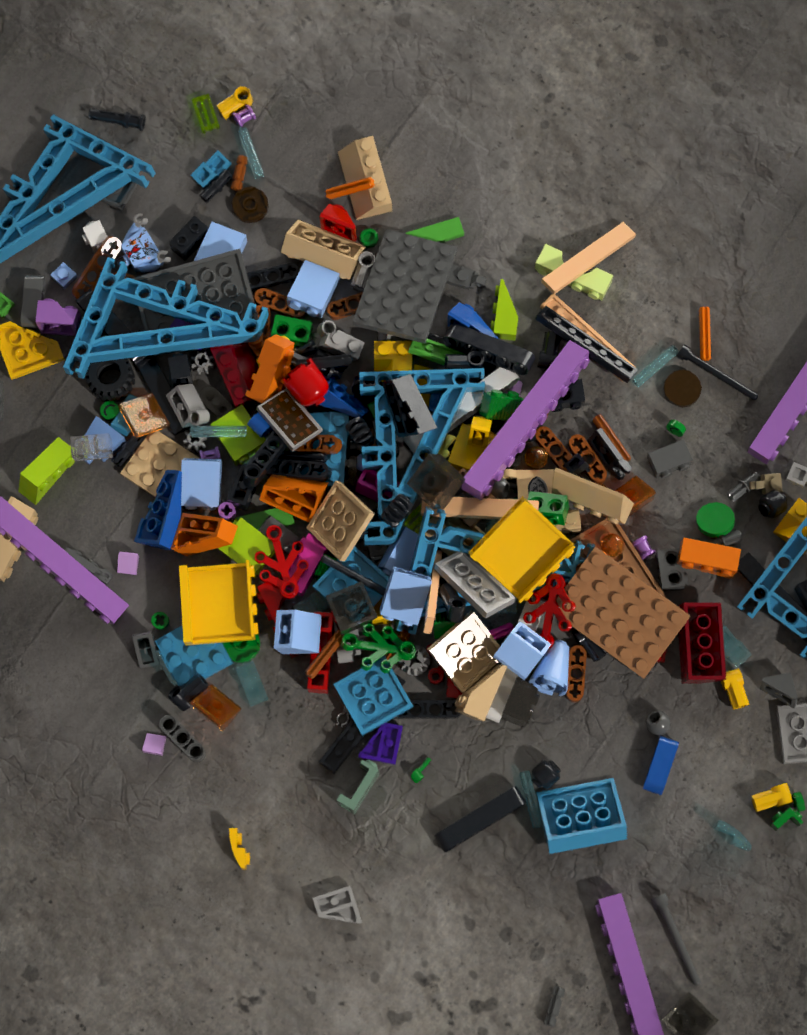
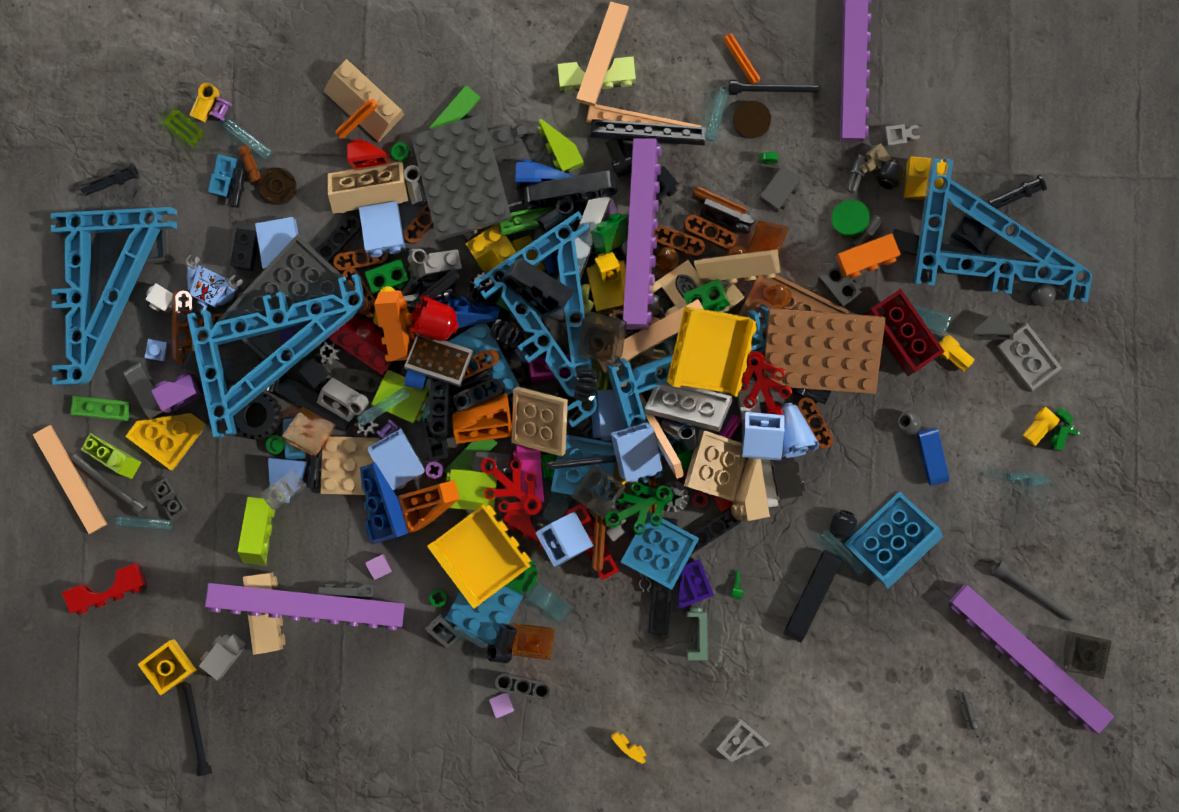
camera: 30 degrees left, 10 degrees up
(577, 465) = (706, 245): black tile -> none
(643, 547) = (805, 280): medium lavender bush -> none

